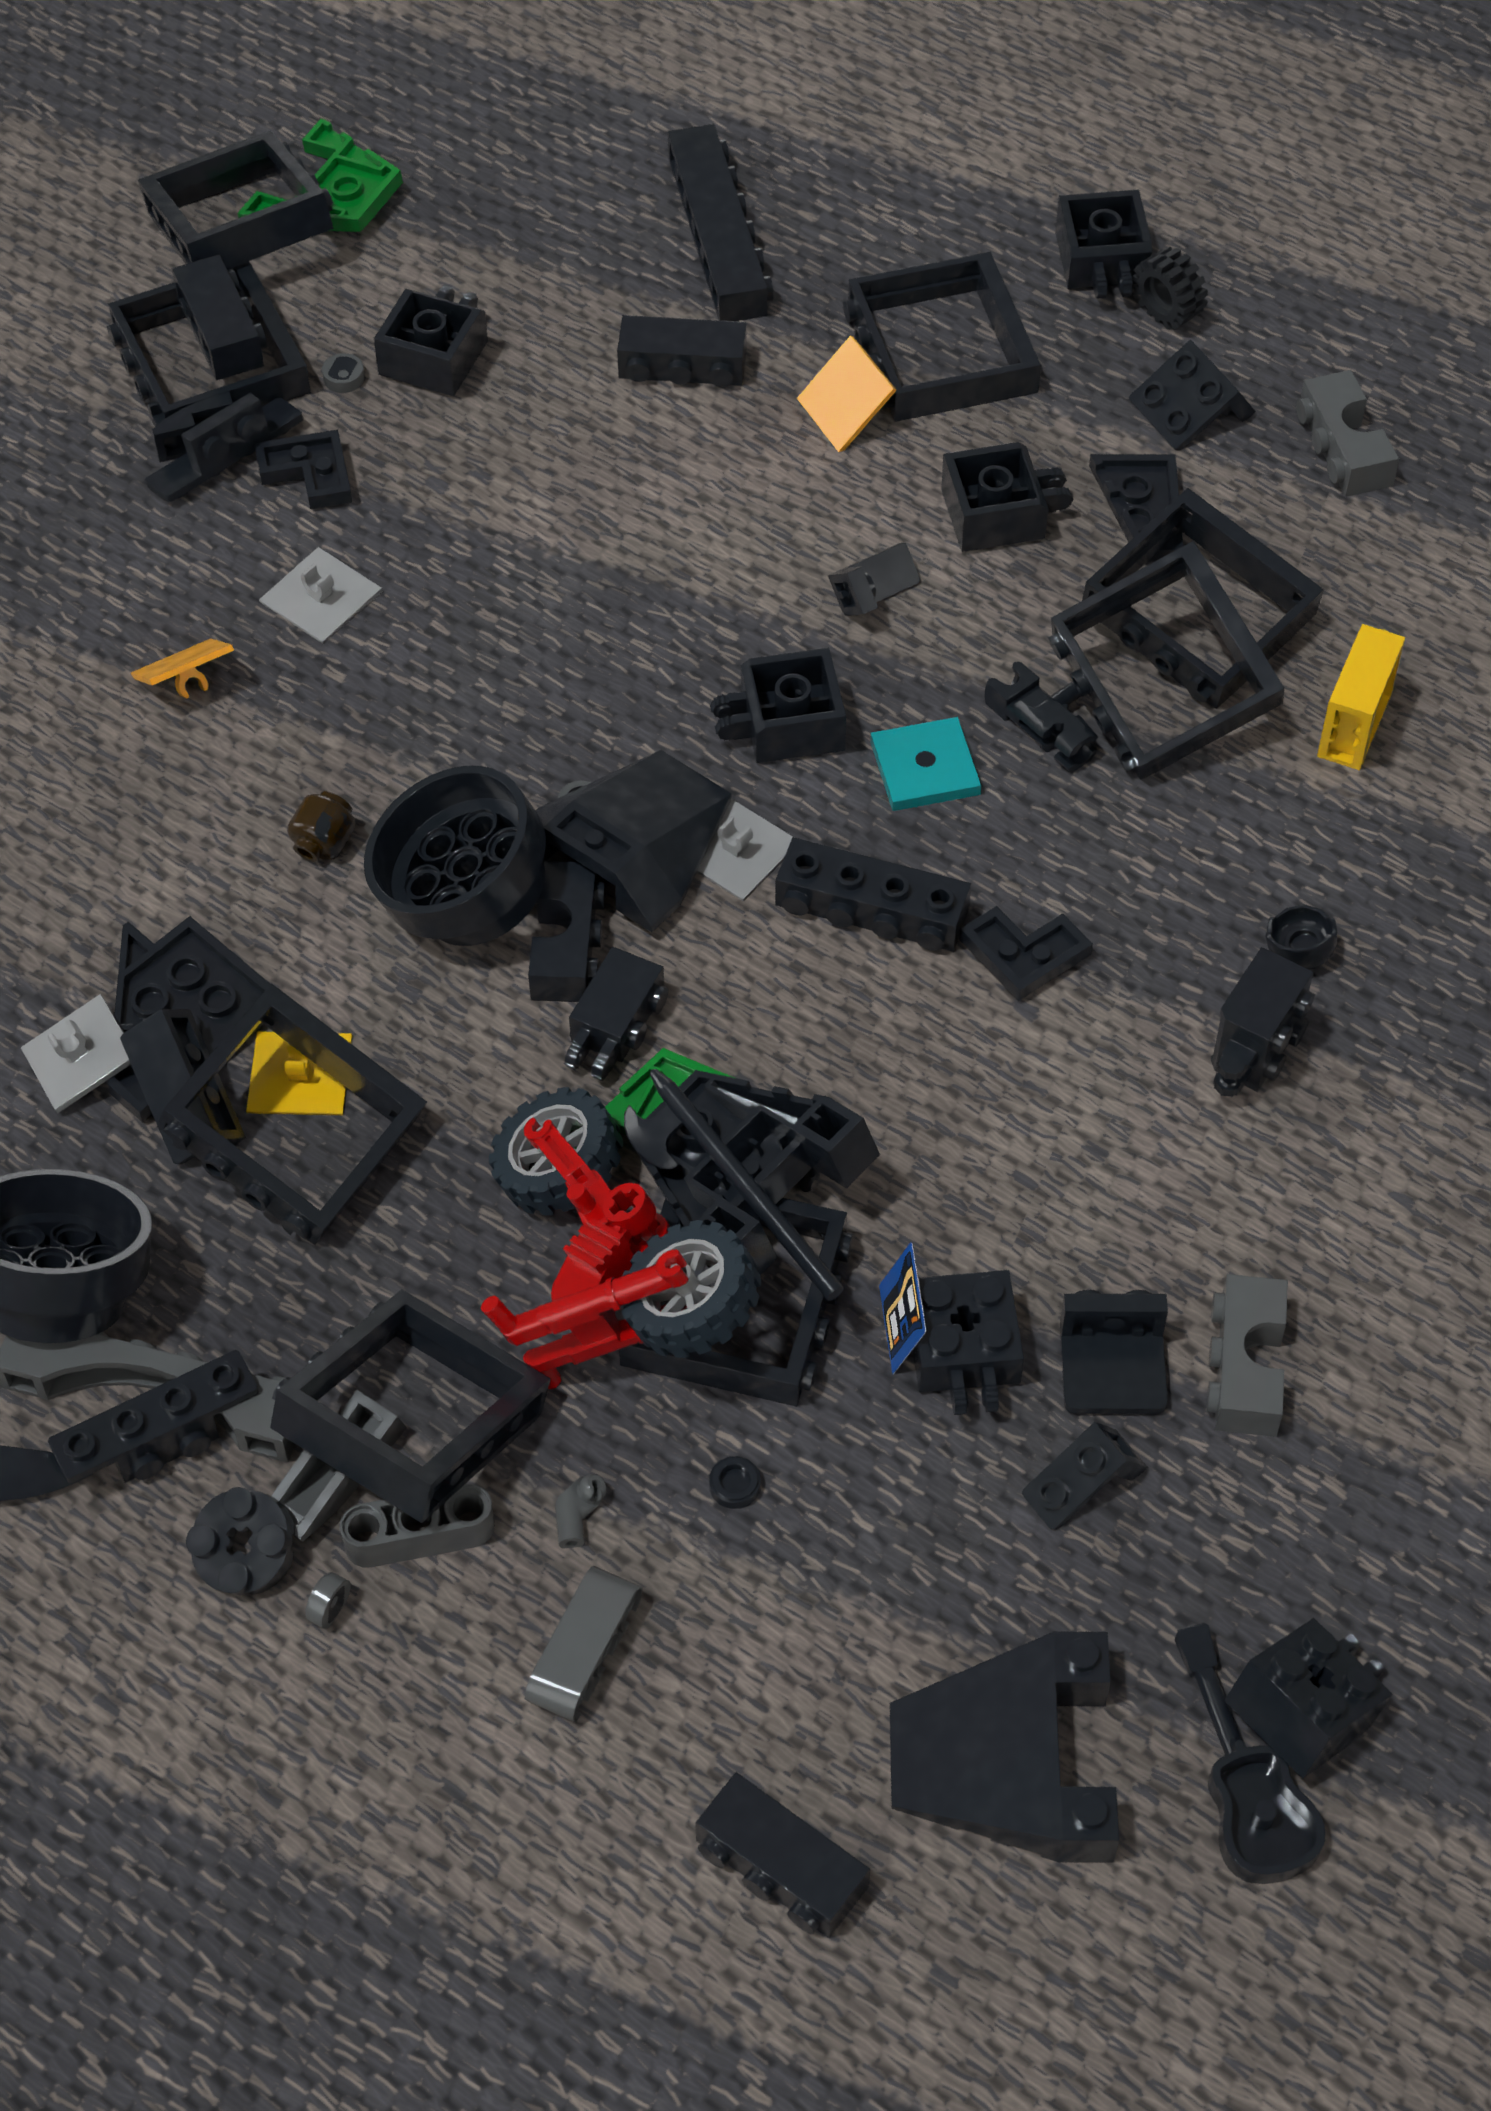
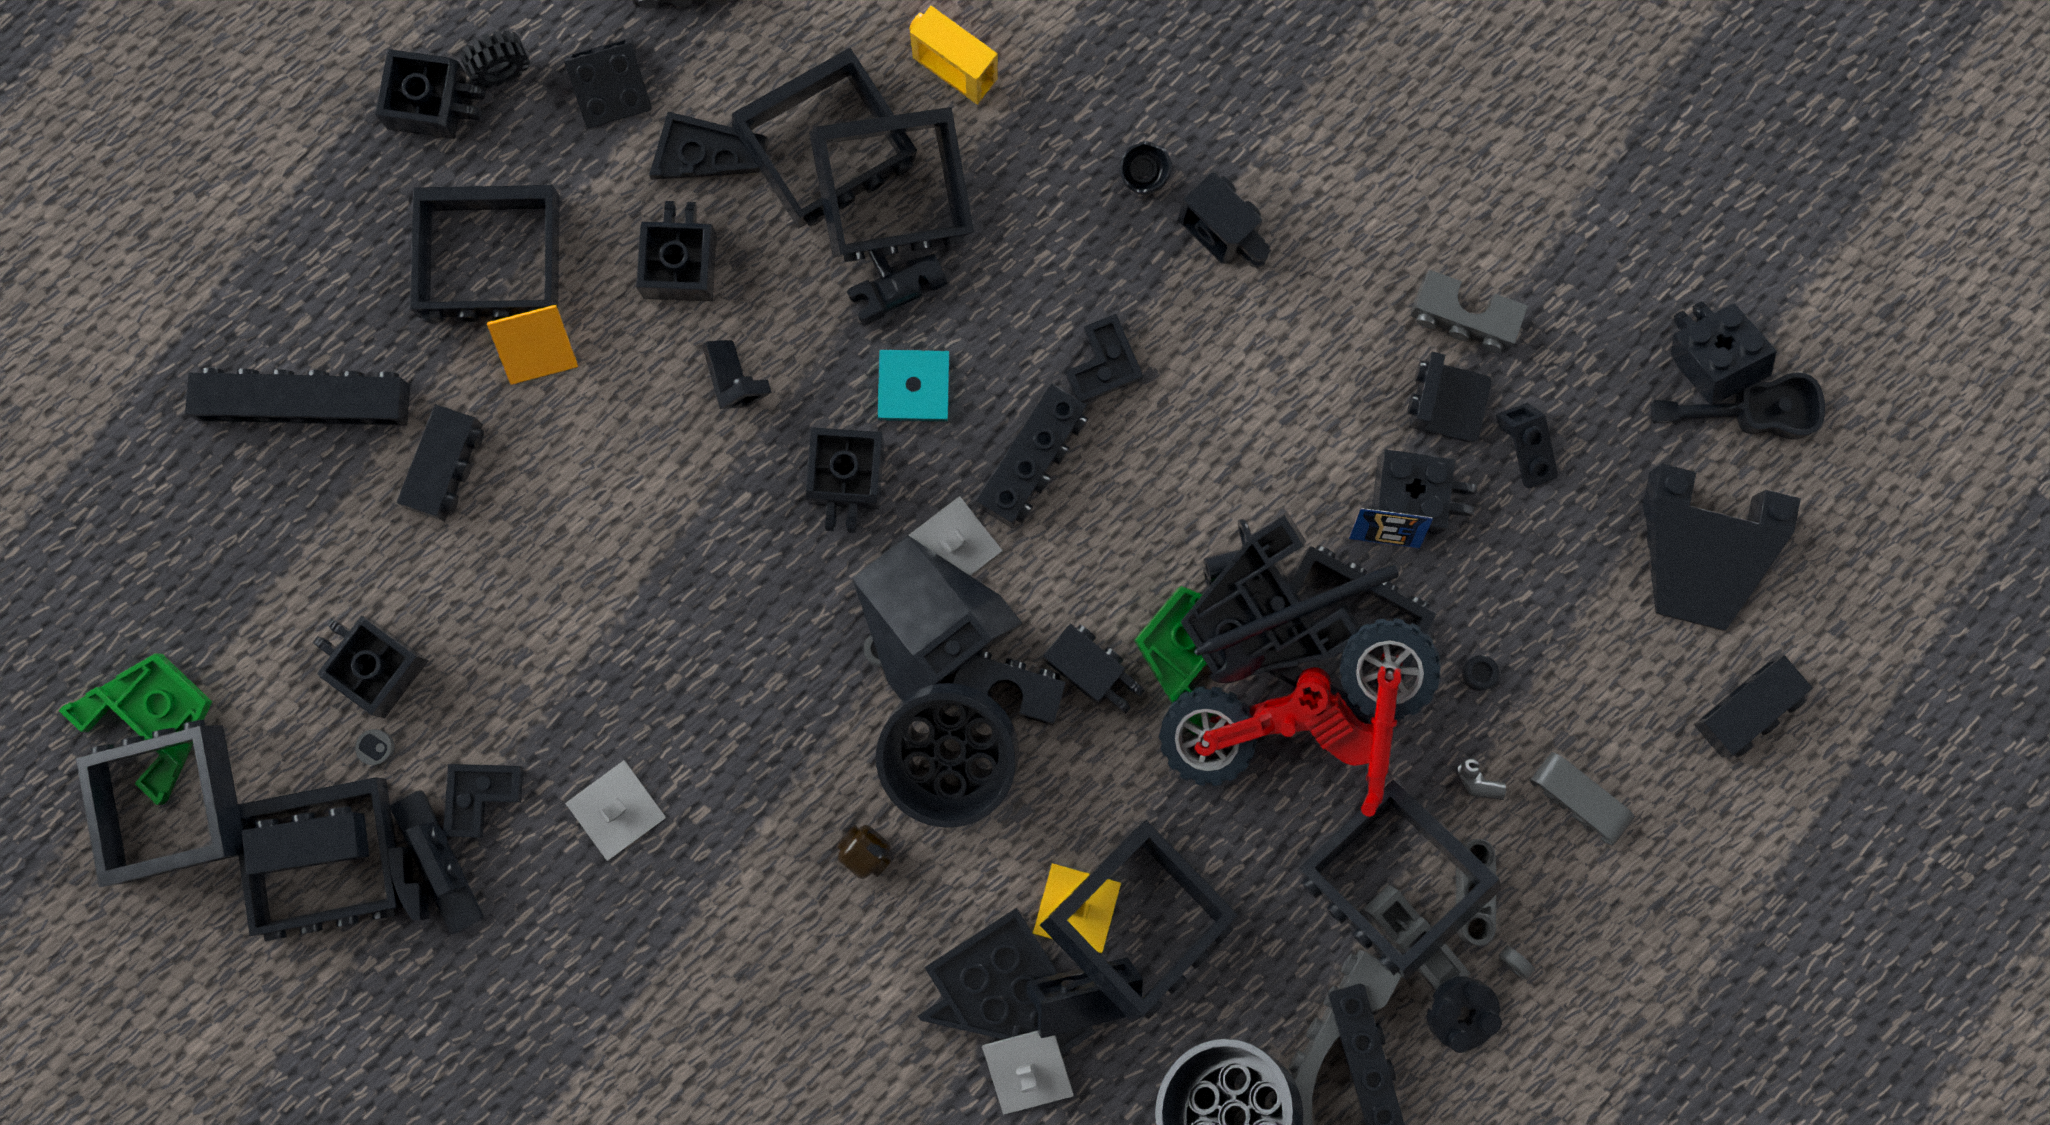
camera: 80 degrees left, 25 degrees up
(183, 665) = (670, 934): light orange piece -> none

